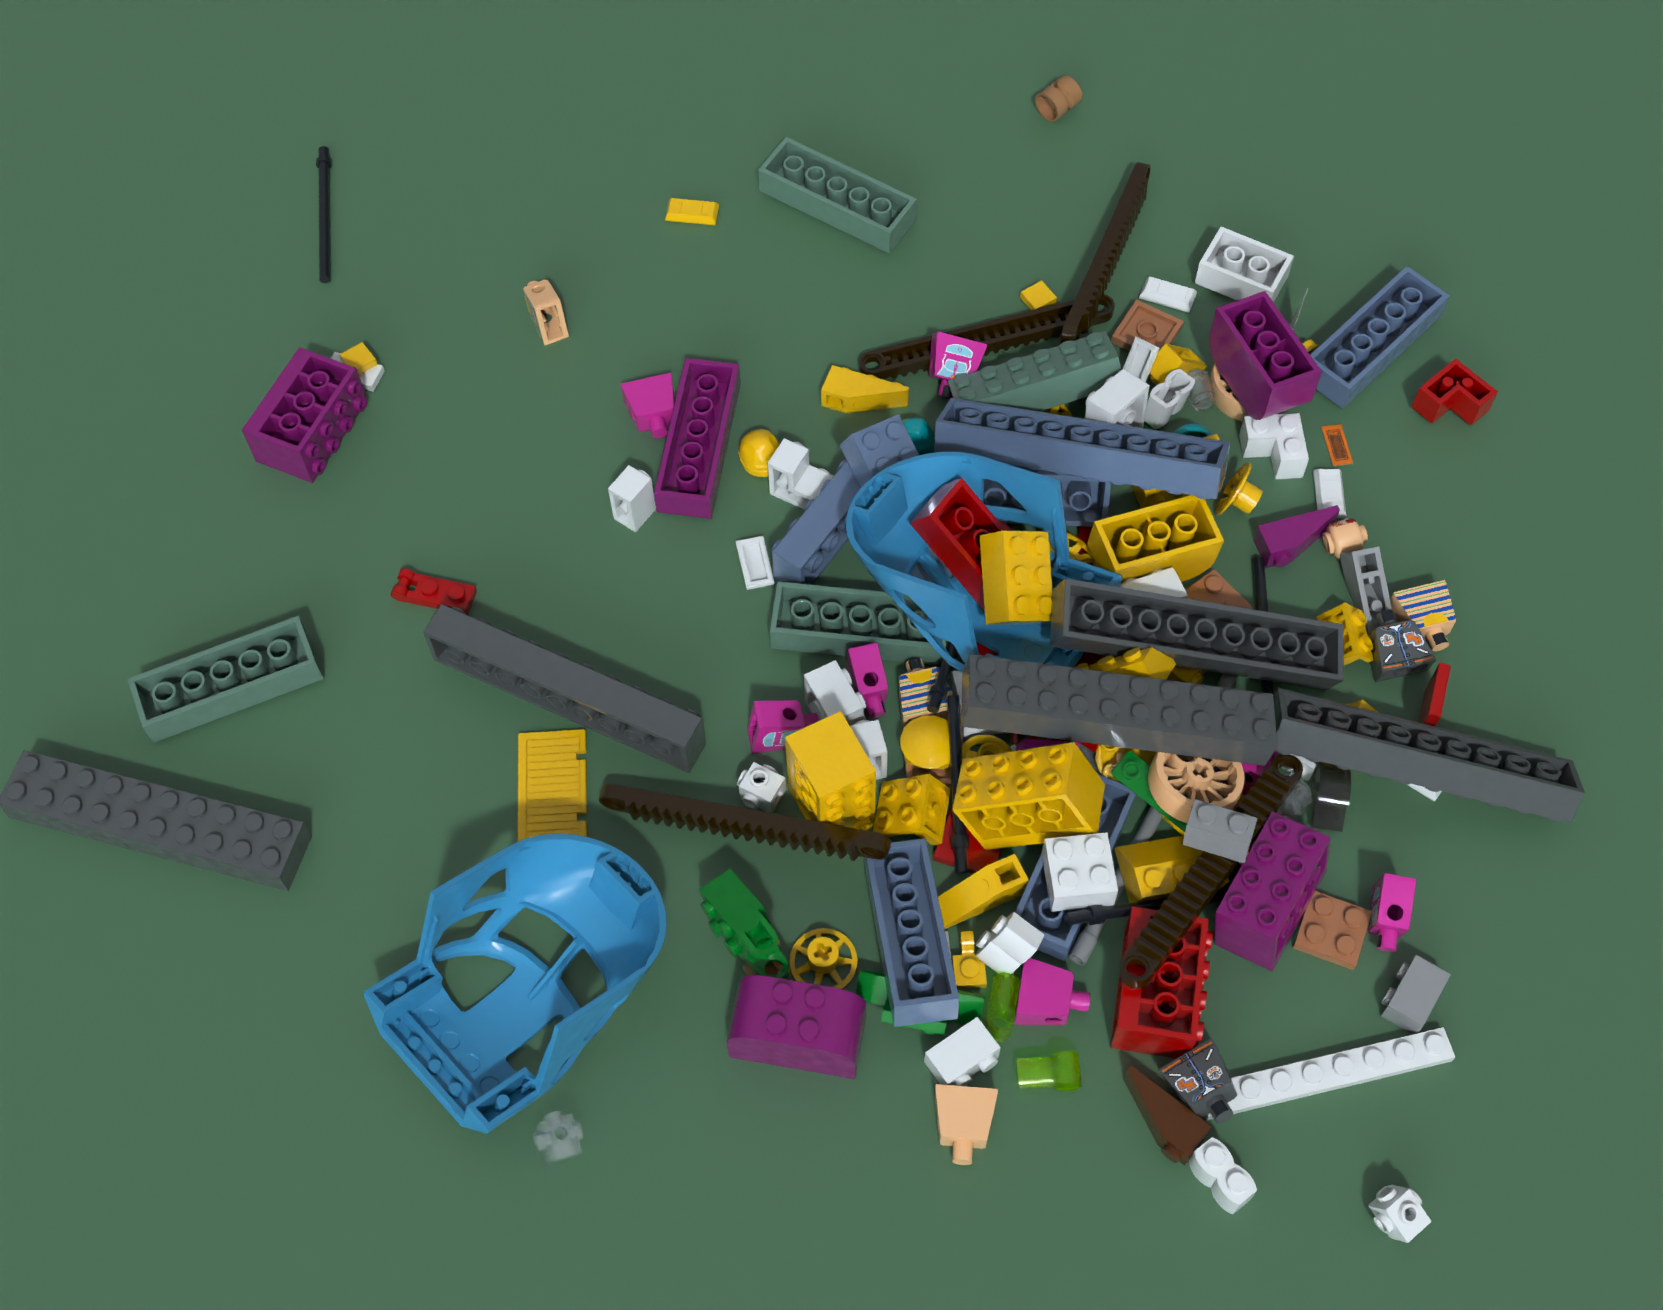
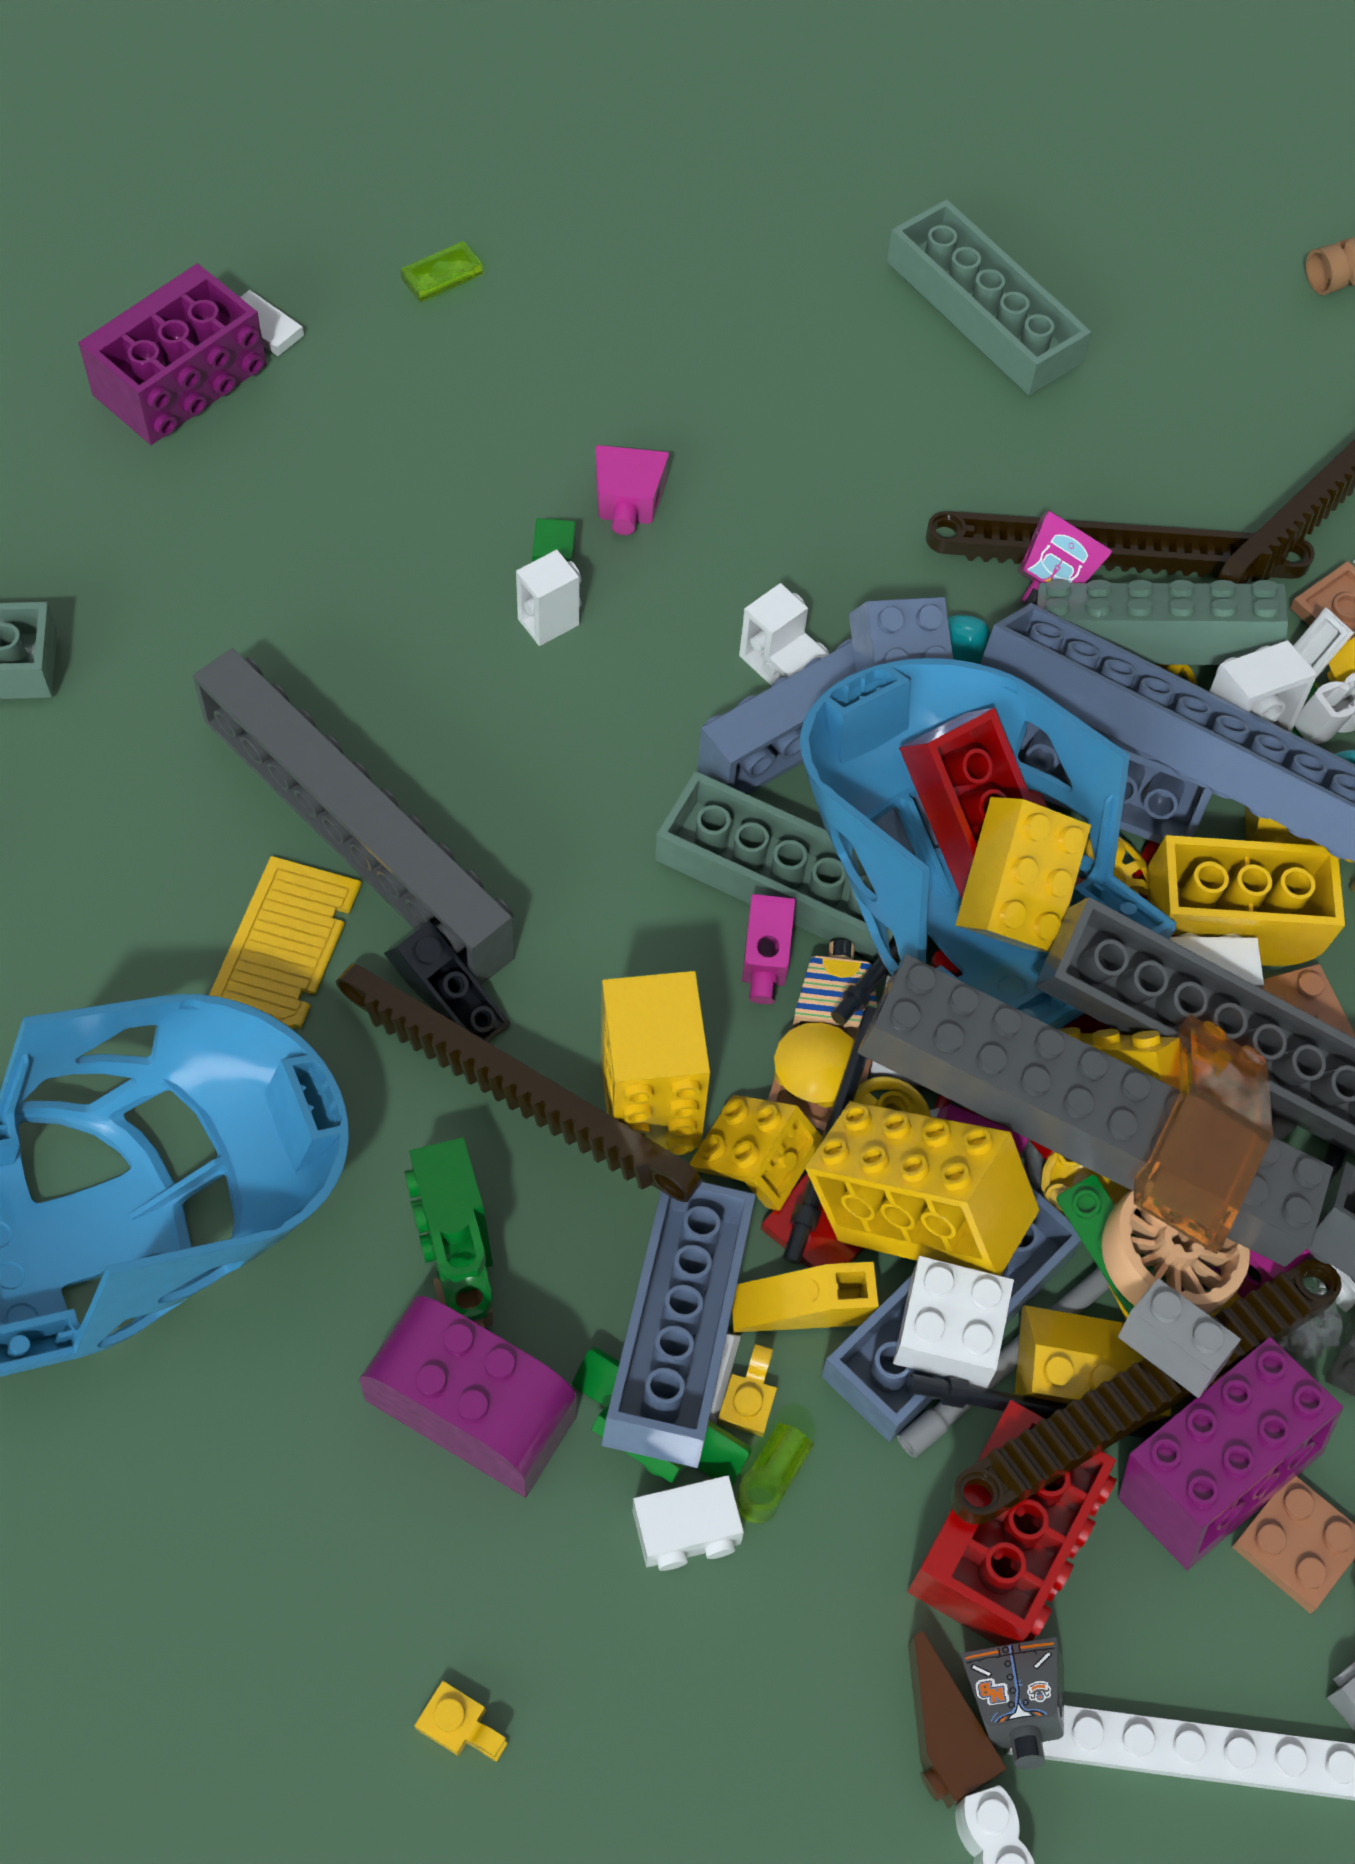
camera: 15 degrees right, 0 degrees up
(323, 162) = (339, 57): black bar -> none
(359, 357) = (273, 307): yellow tile -> none
(433, 591) = (242, 633): red plate -> none
(461, 295) = (441, 271): none -> clear neon green plate
(543, 300) = (539, 311): light nougat torso -> none
(553, 1148) = (86, 1442): clear brick -> none
(617, 458) = (554, 535): none -> green brick
(668, 774) = (445, 982): none -> black slope
(692, 211) = (787, 260): yellow tile -> none
(697, 438) = (669, 549): magenta brick -> none
(755, 563) = (679, 739): white tile -> none
(756, 451) = (740, 588): yellow hat -> none
(761, 787) = (561, 1042): white brick -> none
(774, 721) = (614, 954): dark pink torso -> none
(824, 956) = (549, 1311): yellow wheel -> none
(830, 691) = (707, 944): white brick -> none
(857, 392) = (913, 561): yellow slope -> none
(868, 1228) = (455, 1720): none -> yellow plate
(872, 741) = (728, 1042): white brick -> none
(964, 1118) = (653, 1616): light nougat torso -> none
(1008, 943) = (813, 1387): white brick -> none
(1038, 296) = (1211, 514): yellow tile -> none
(1047, 995) = (843, 1481): dark pink torso -> none
(1058, 1071) = (815, 1597): clear neon green piece -> none
(1196, 701) = (1210, 1138): none -> clear orange windscreen

